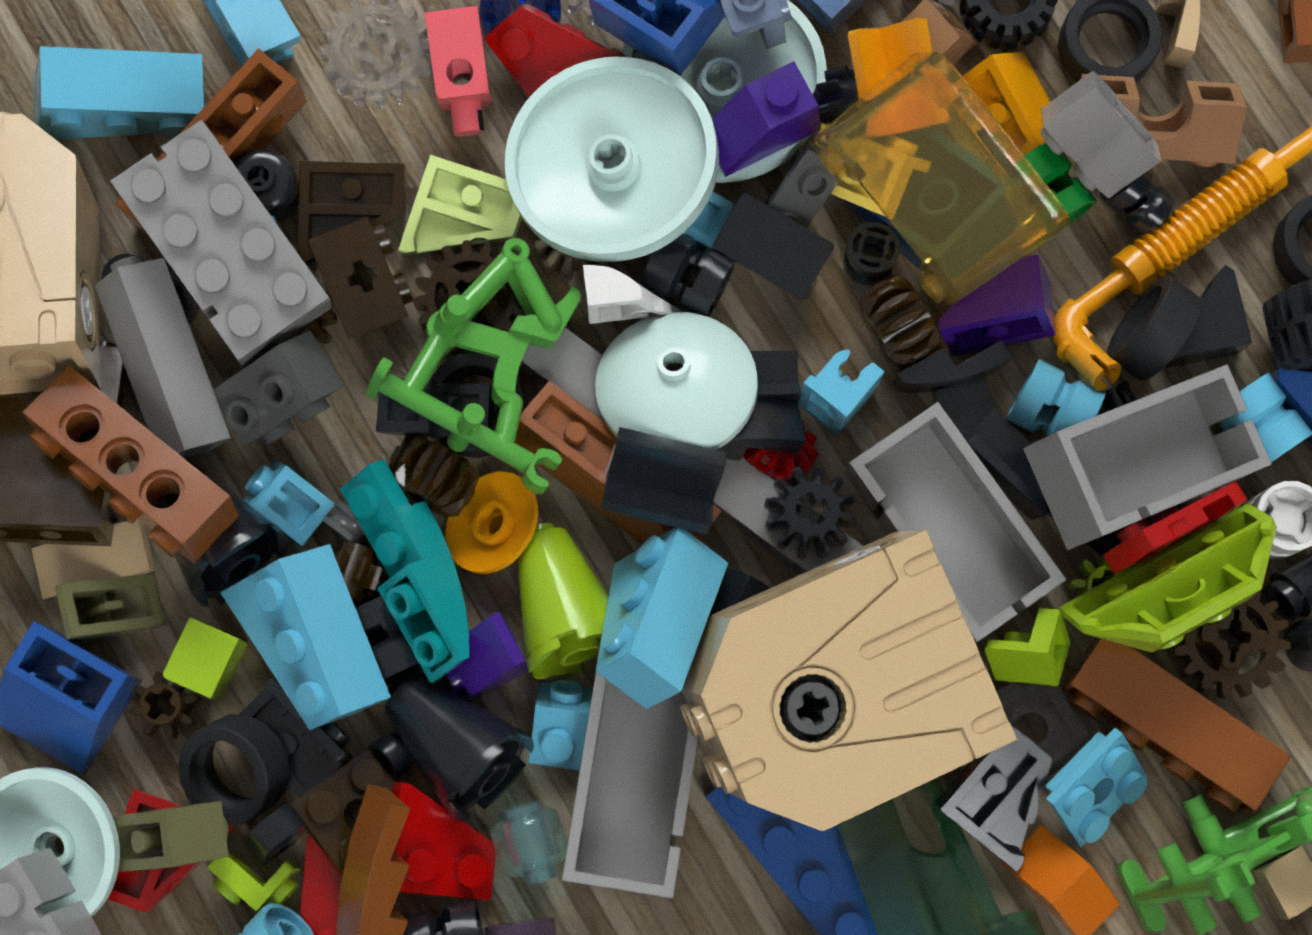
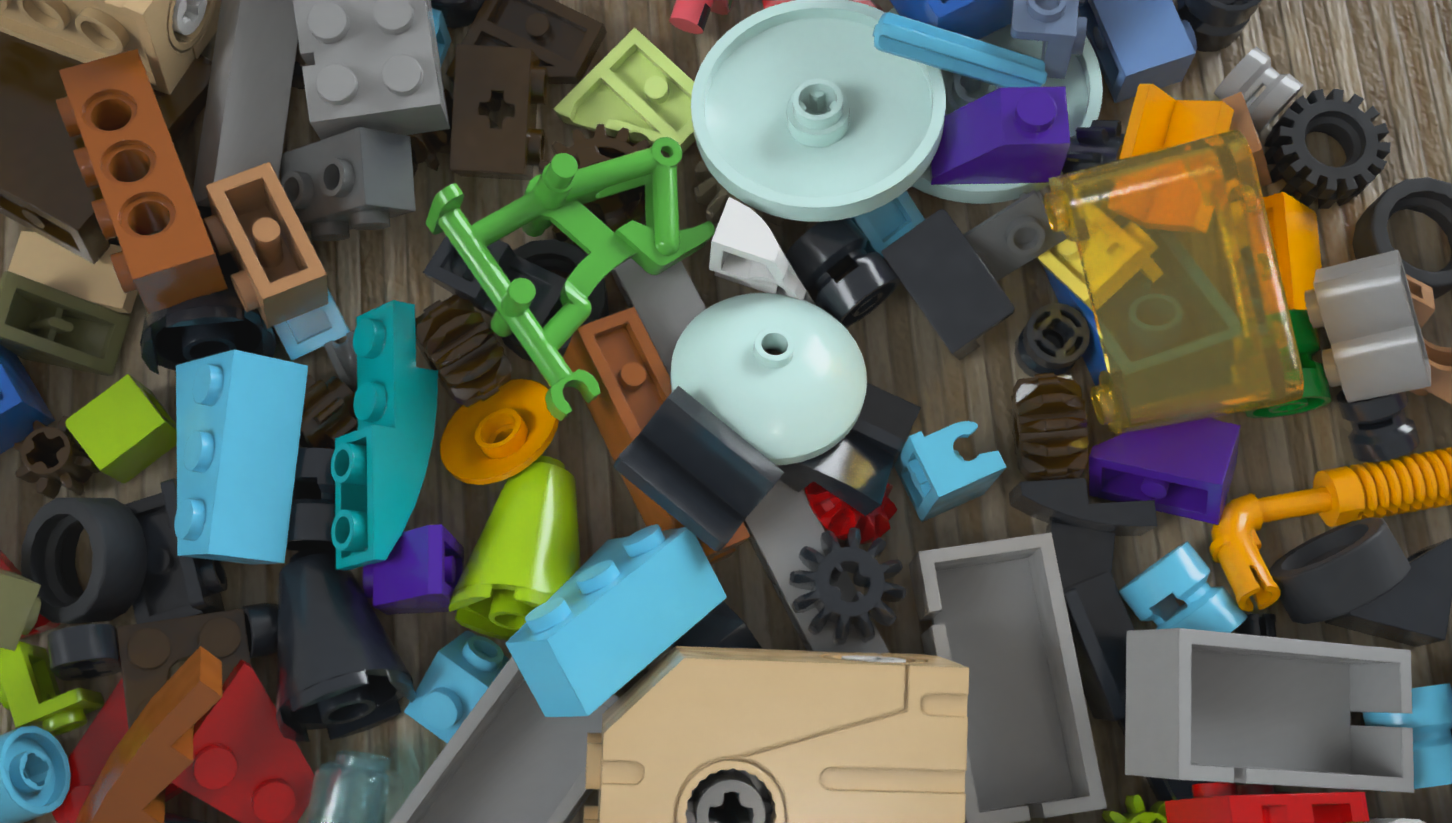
camera: 25 degrees right, 5 degrees down
(253, 469) = (267, 244): none -> medium nougat brick
(700, 68) = (957, 53): none -> medium azure axle

